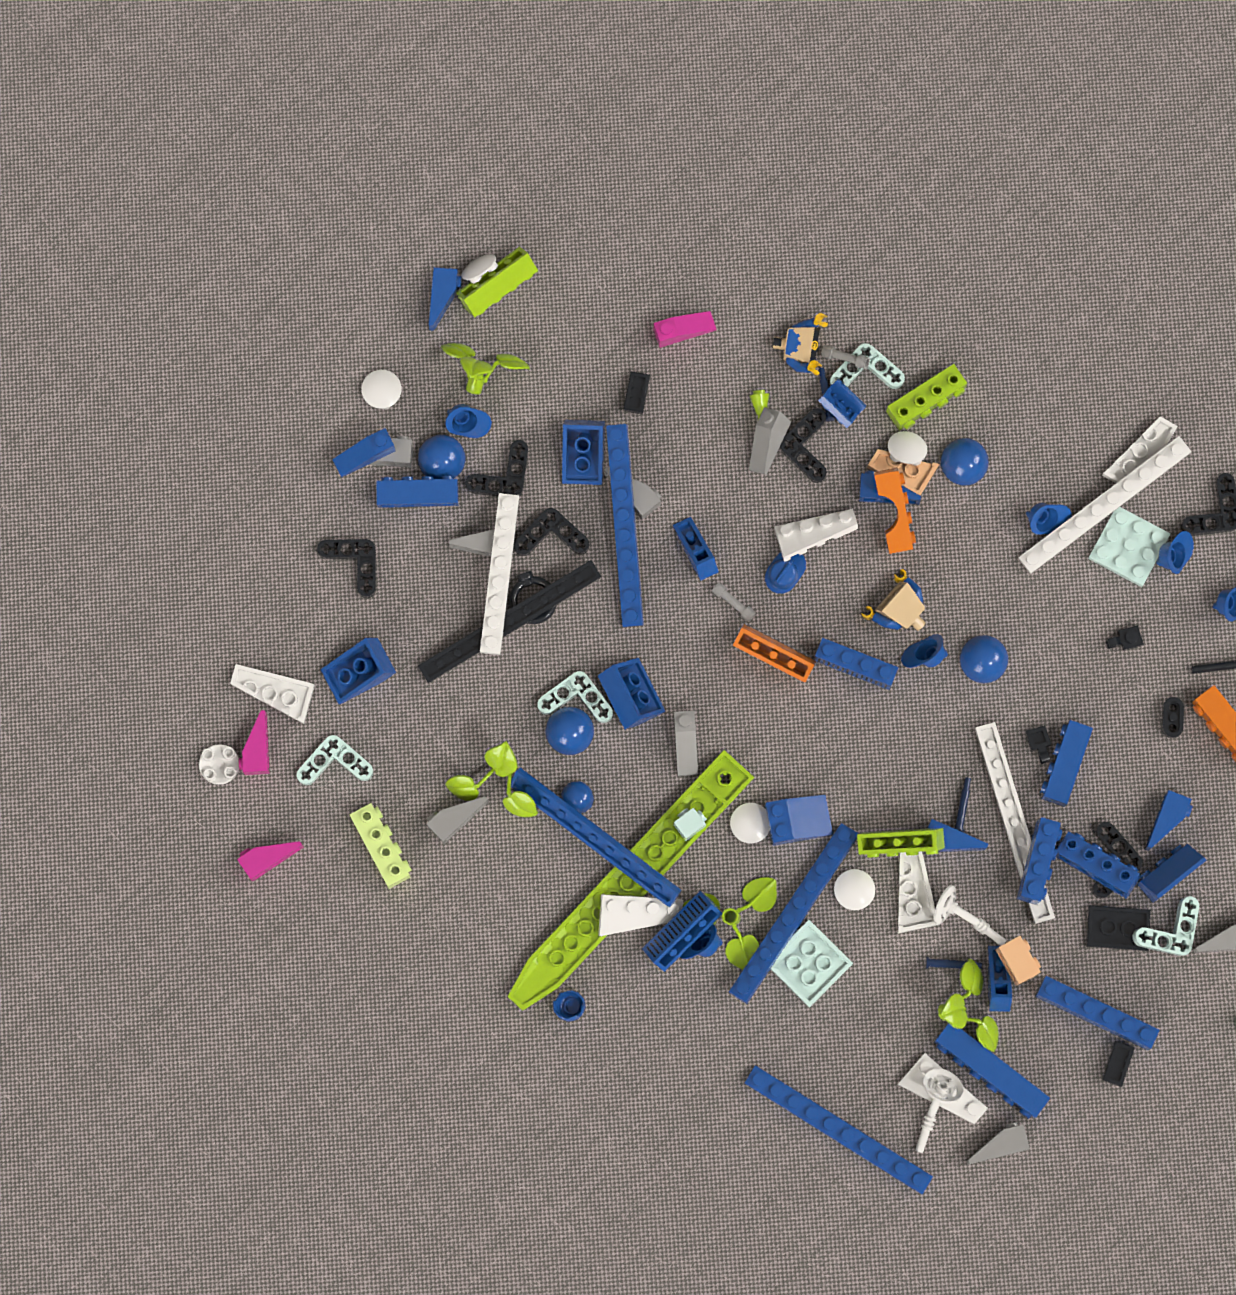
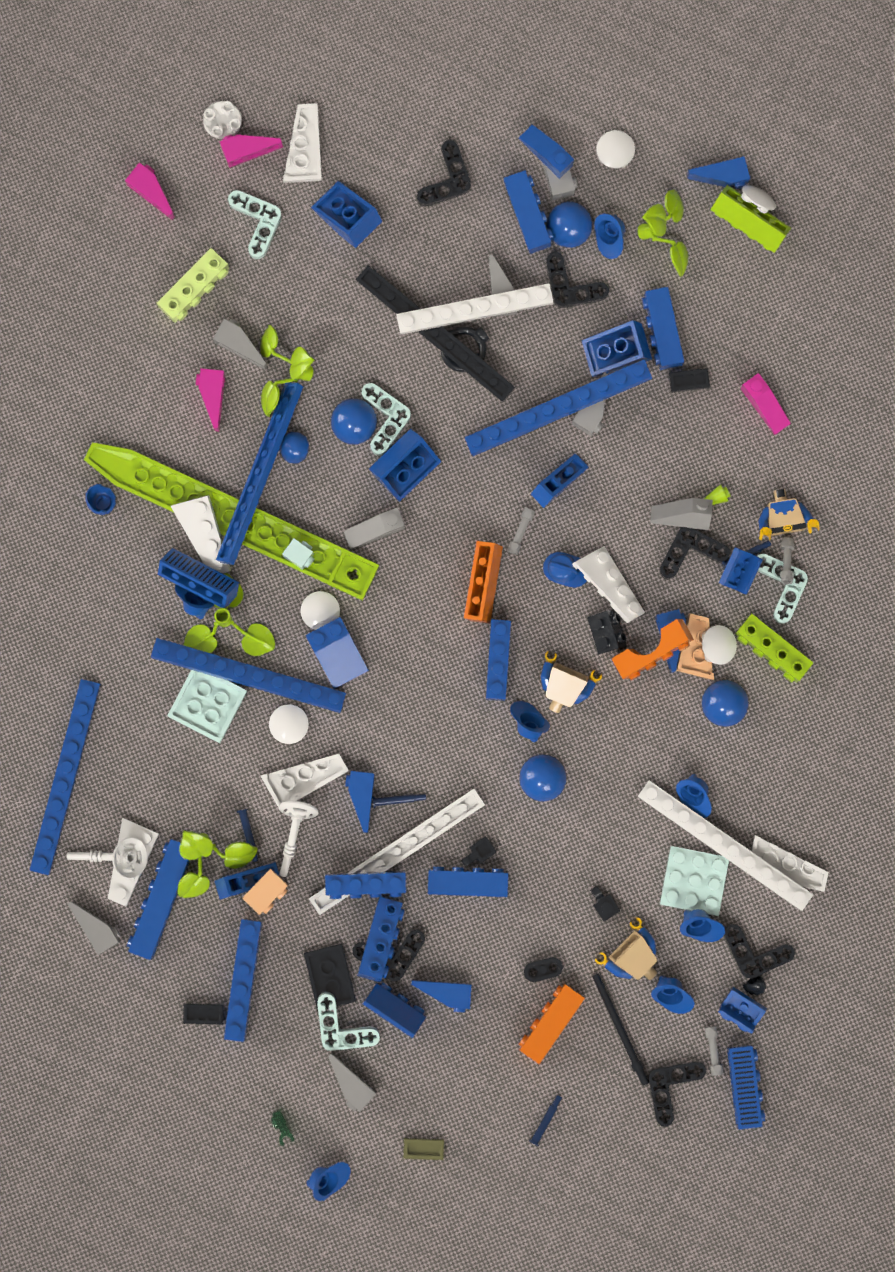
camera: 70 degrees right, 5 degrees up
(494, 861) = (212, 388): none -> dark pink slope
(554, 527) = (538, 347): black beam -> none
(577, 400) = (663, 328): none -> blue brick
(860, 550) = (607, 631): none -> black bracket
(901, 841) = (342, 751): lime brick -> none
(1186, 625) = (633, 956): none -> tan torso

